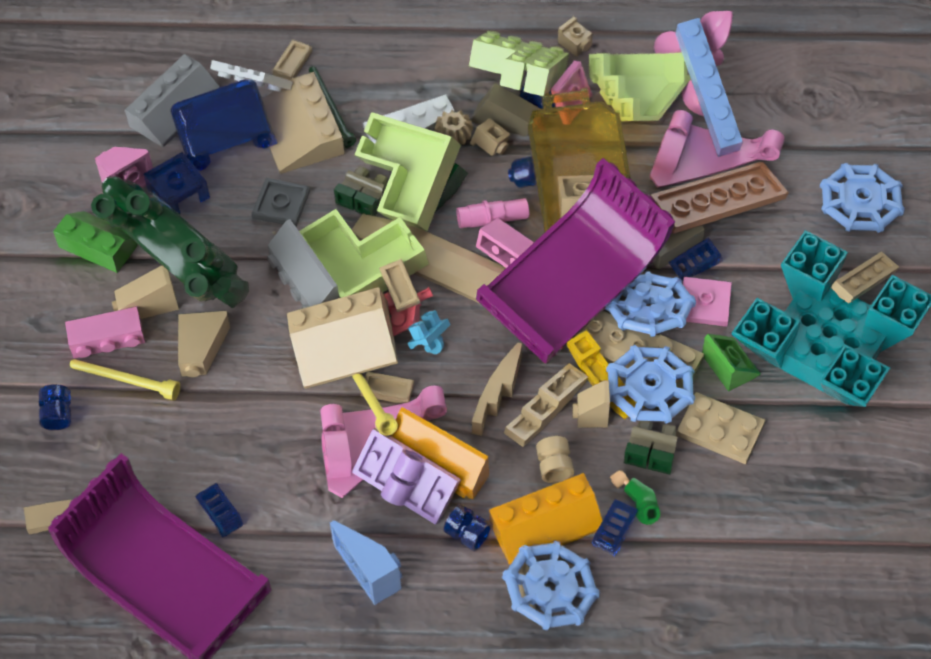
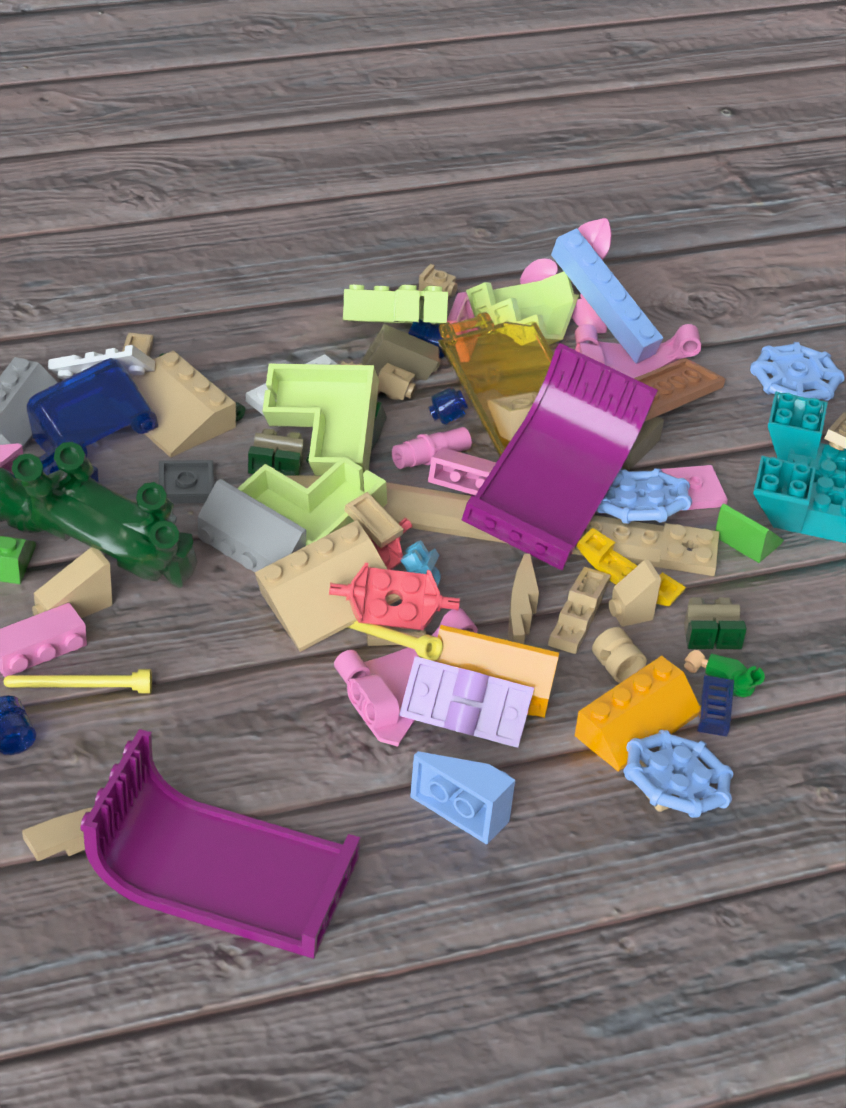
camera: 25 degrees left, 15 degrees down
(200, 340) = (155, 625): tan slope -> none
(228, 521) = (271, 802): clear blue slope -> none
(365, 360) = (418, 595): none -> coral plate
(470, 529) = (558, 738): clear blue wheel -> none
(647, 395) = (692, 548): light blue plate -> none
(699, 249) = (669, 438): clear blue slope -> none
(720, 428) = (772, 594): tan plate -> none

